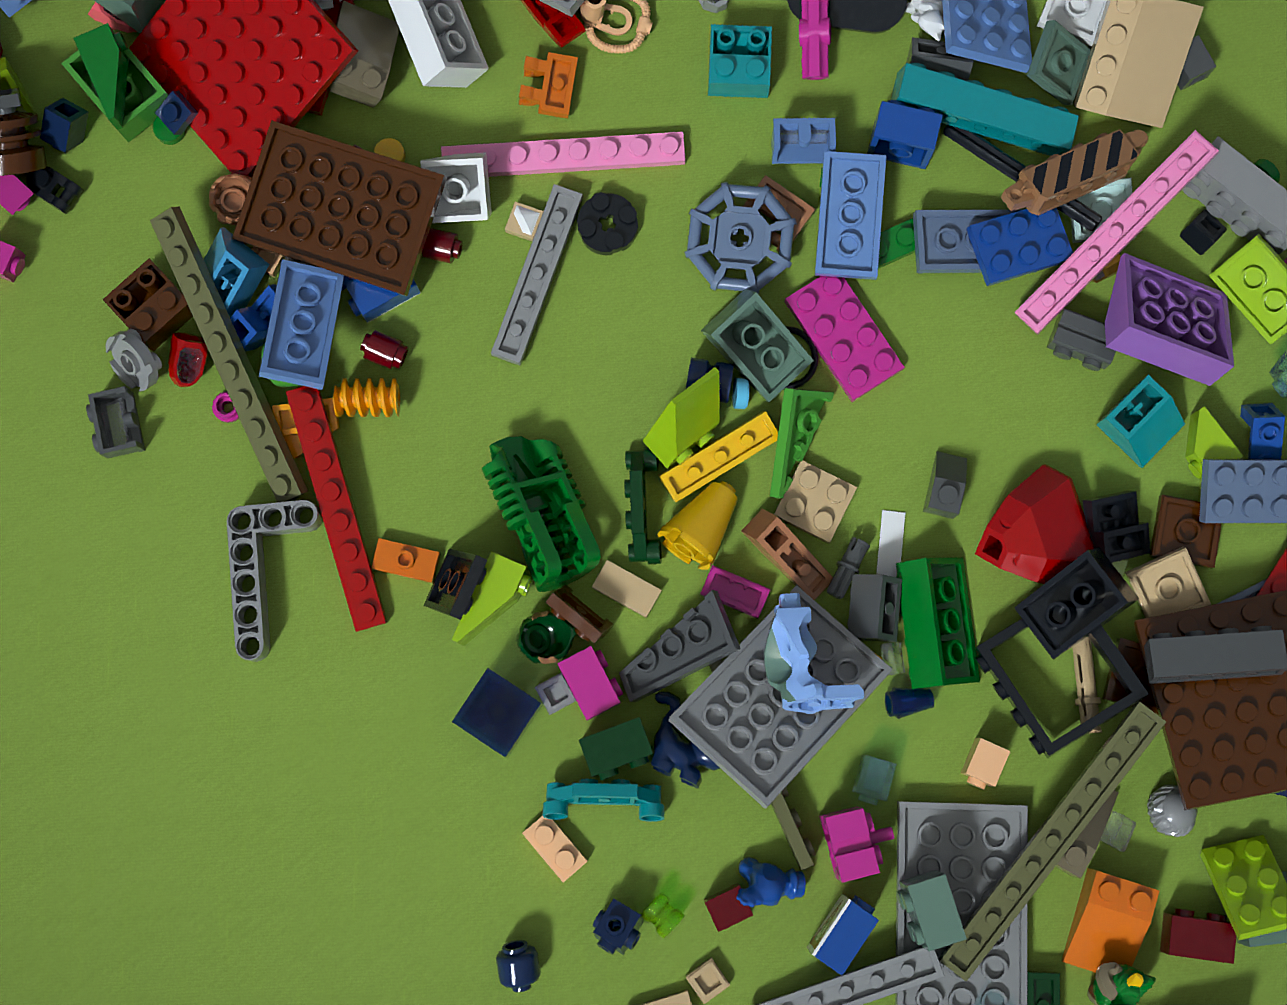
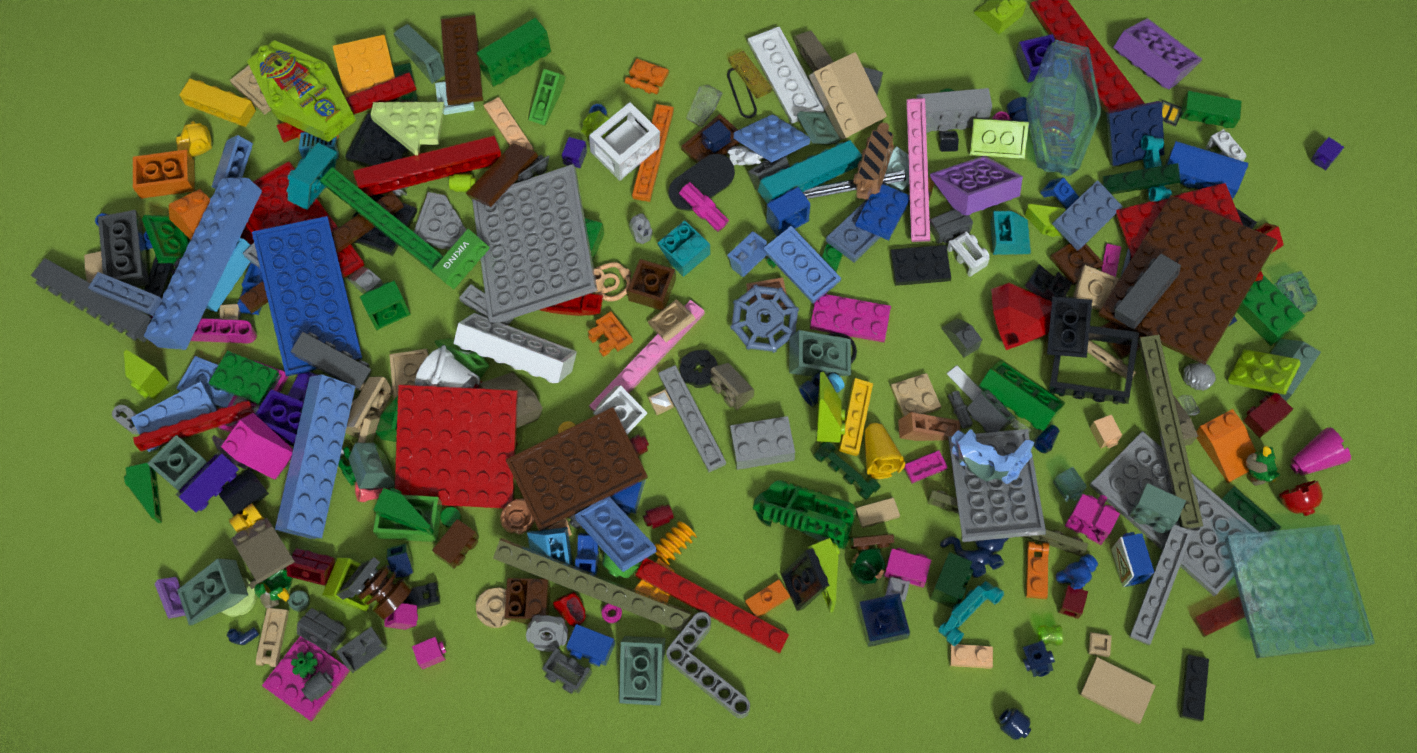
camera: 45 degrees left, 15 degrees down
(110, 270) = (491, 607): none -> tan tile
(141, 164) = (456, 544): none -> reddish brown brick
(167, 420) = (590, 645): none -> blue brick
(176, 112) = (450, 504): dark blue plate -> none
(194, 500) = (641, 670): none -> sand green slope
(582, 381) = (762, 442): none -> light grey brick
(619, 279) = (731, 386): none -> dark tan slope
(631, 136) = (671, 320): none -> tan tile
(654, 70) = (651, 284): none -> reddish brown brick
(686, 648) = (933, 508): dark grey wing -> none
(729, 833) = (1037, 571): none -> orange plate
(795, 433) = (877, 376): bright green wing -> none
(995, 352) = (920, 265): none -> black plate
(1068, 395) = (969, 252): none -> white window
(1229, 572) = (1111, 259): none -> dark pink piece

